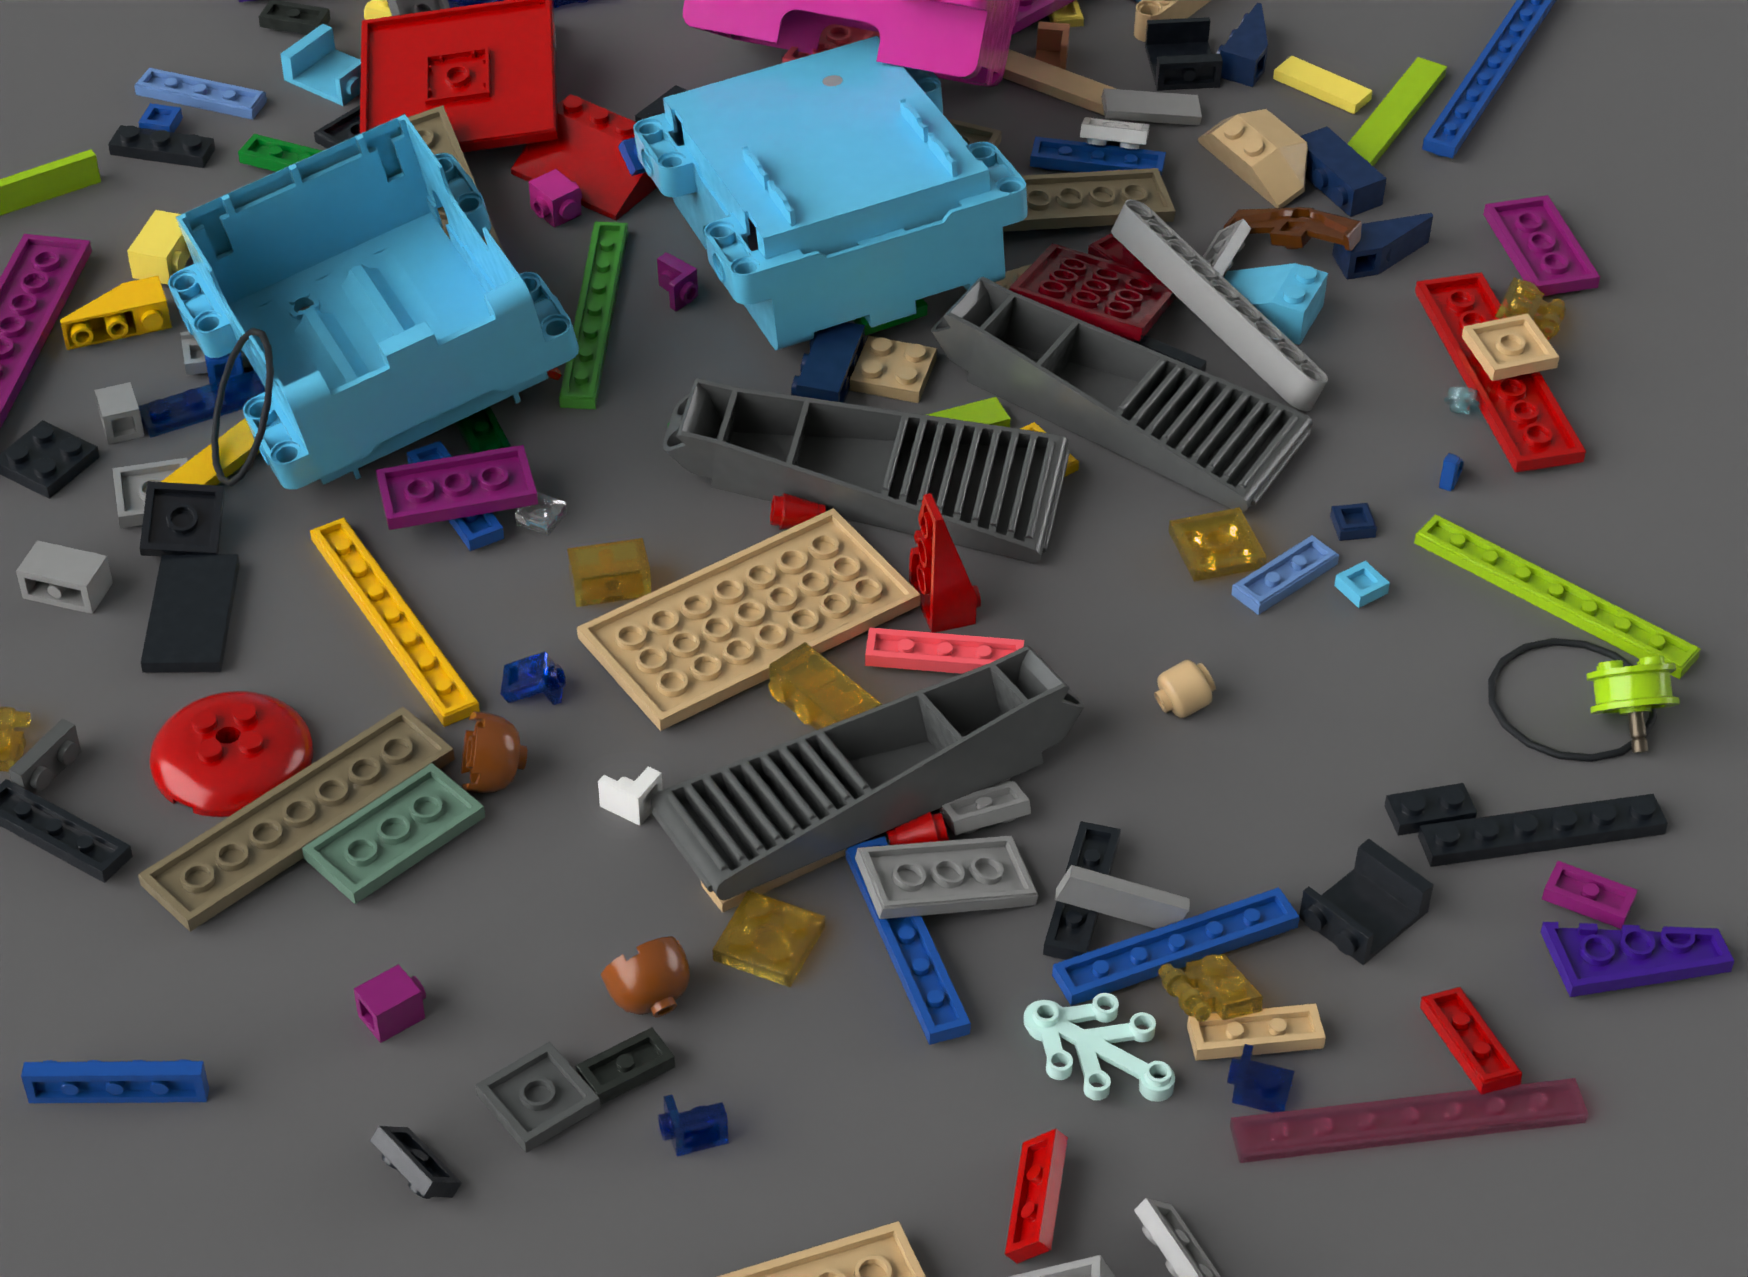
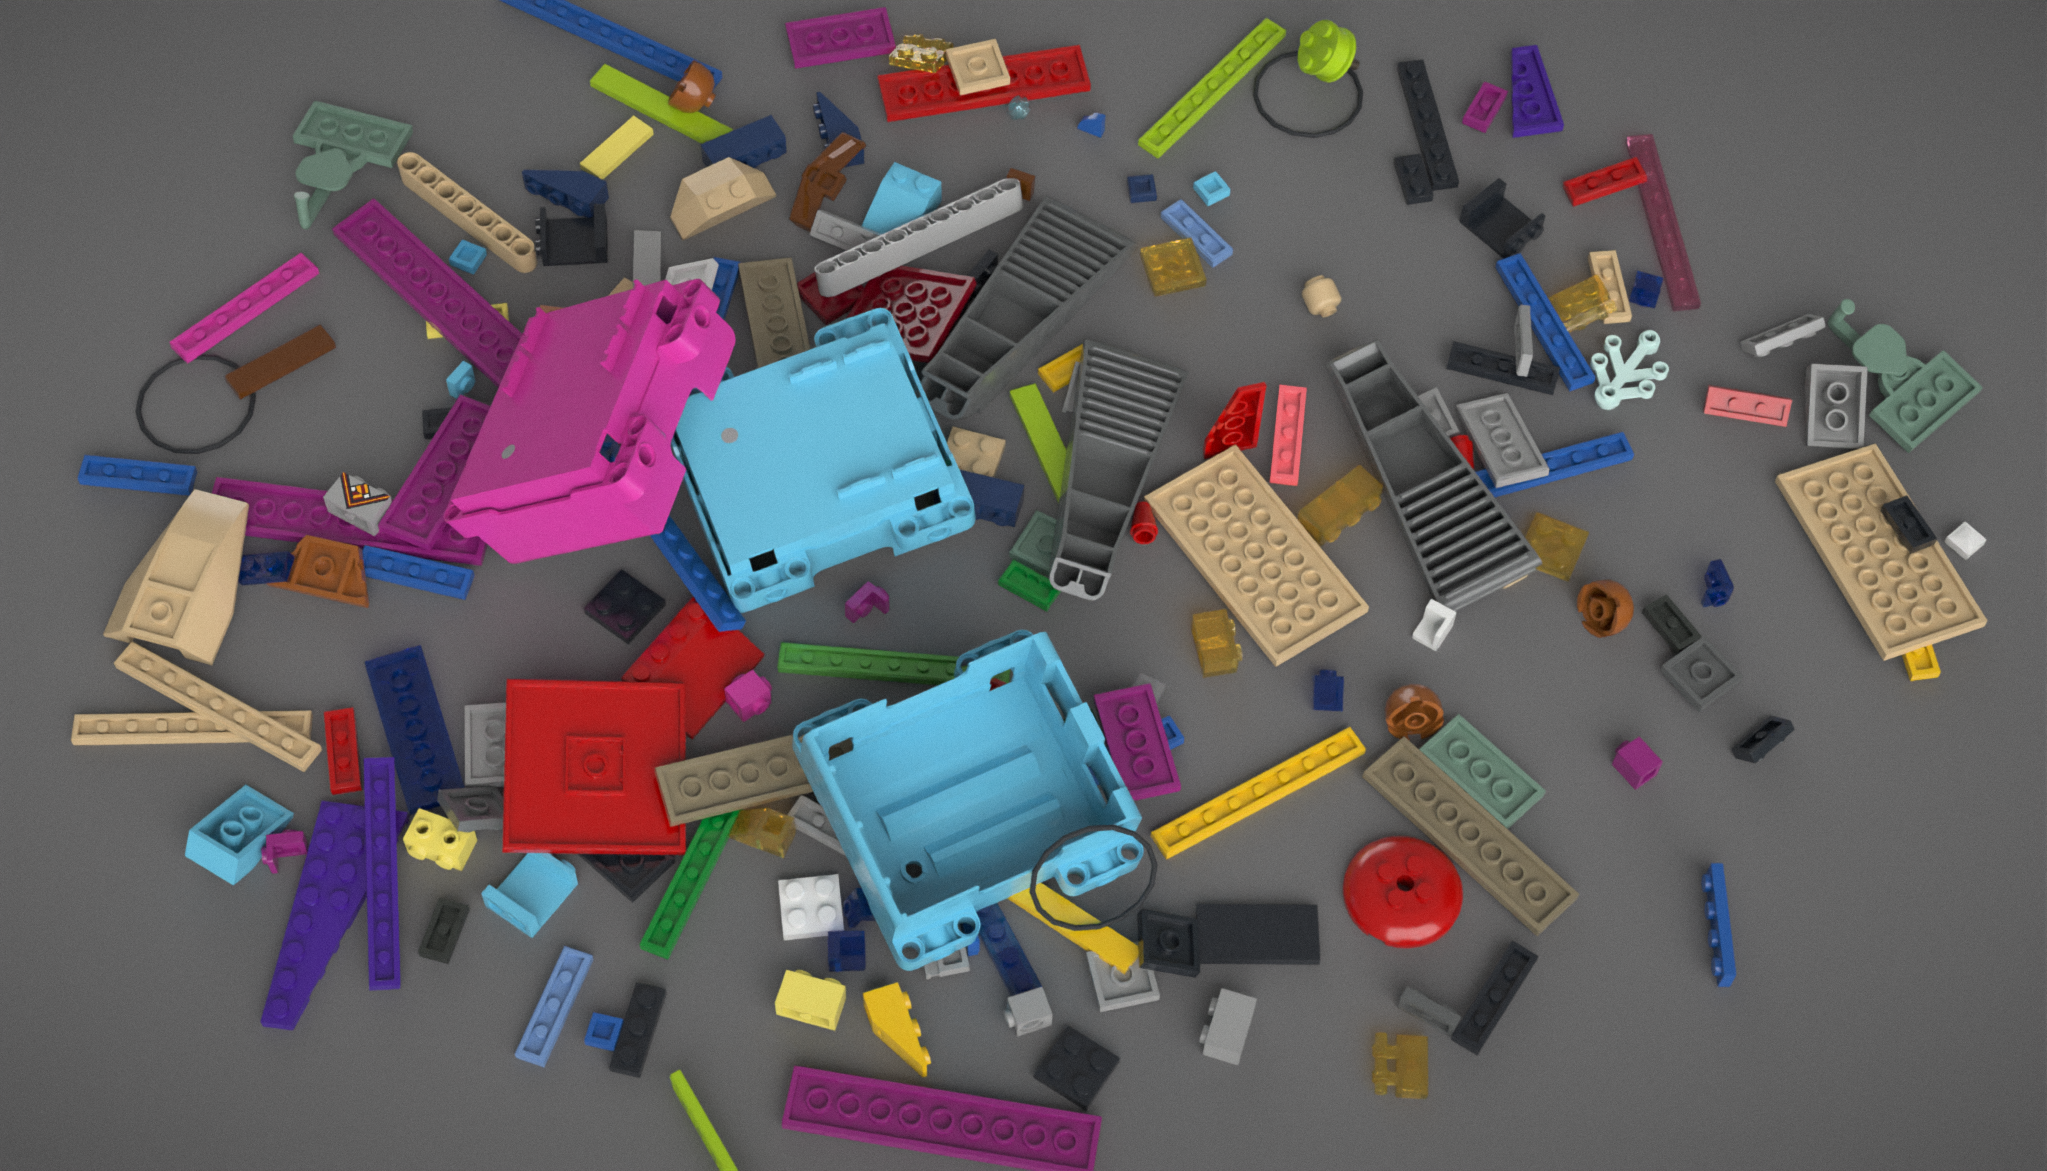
camera: 90 degrees left, 15 degrees up
(1331, 399) = (1026, 181): none -> reddish brown plate
(1411, 113) = (693, 89): none -> dark orange cylinder

